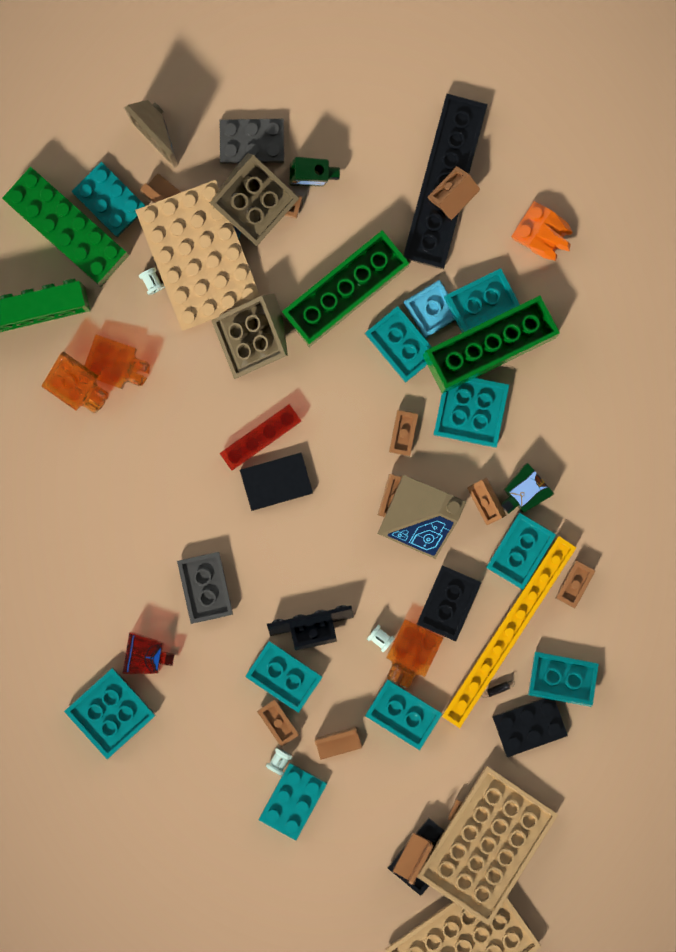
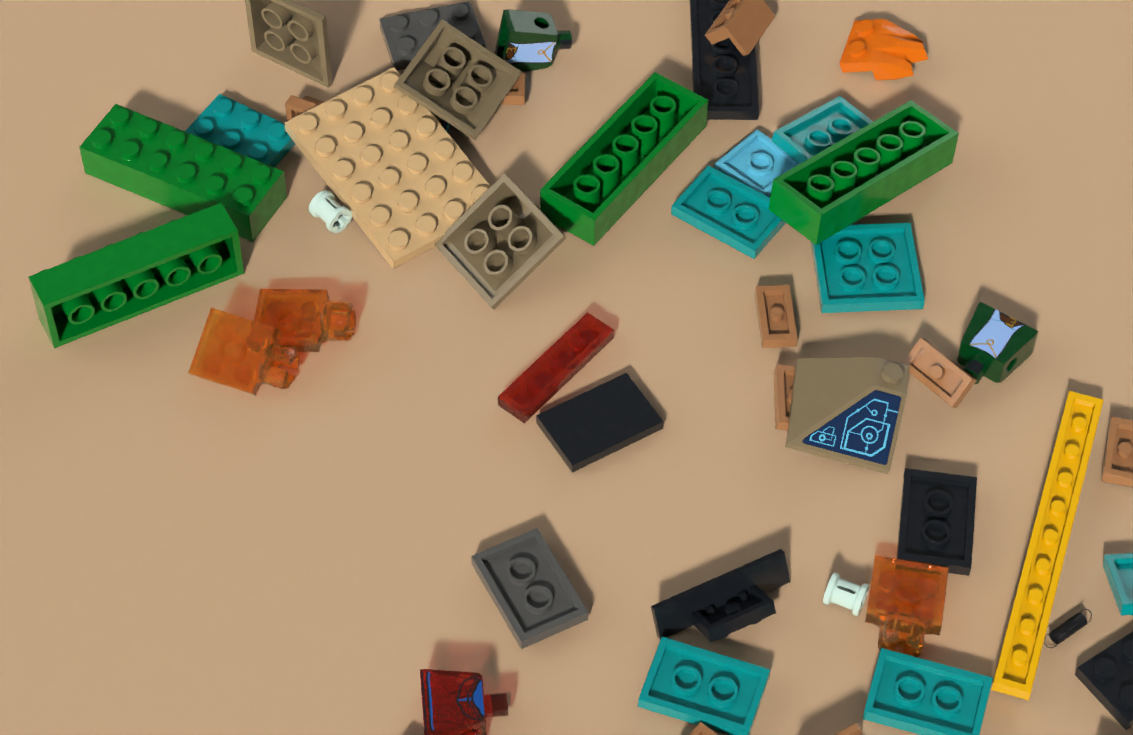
camera: 15 degrees left, 35 degrees down
(520, 551) = (1019, 427): teal plate -> none

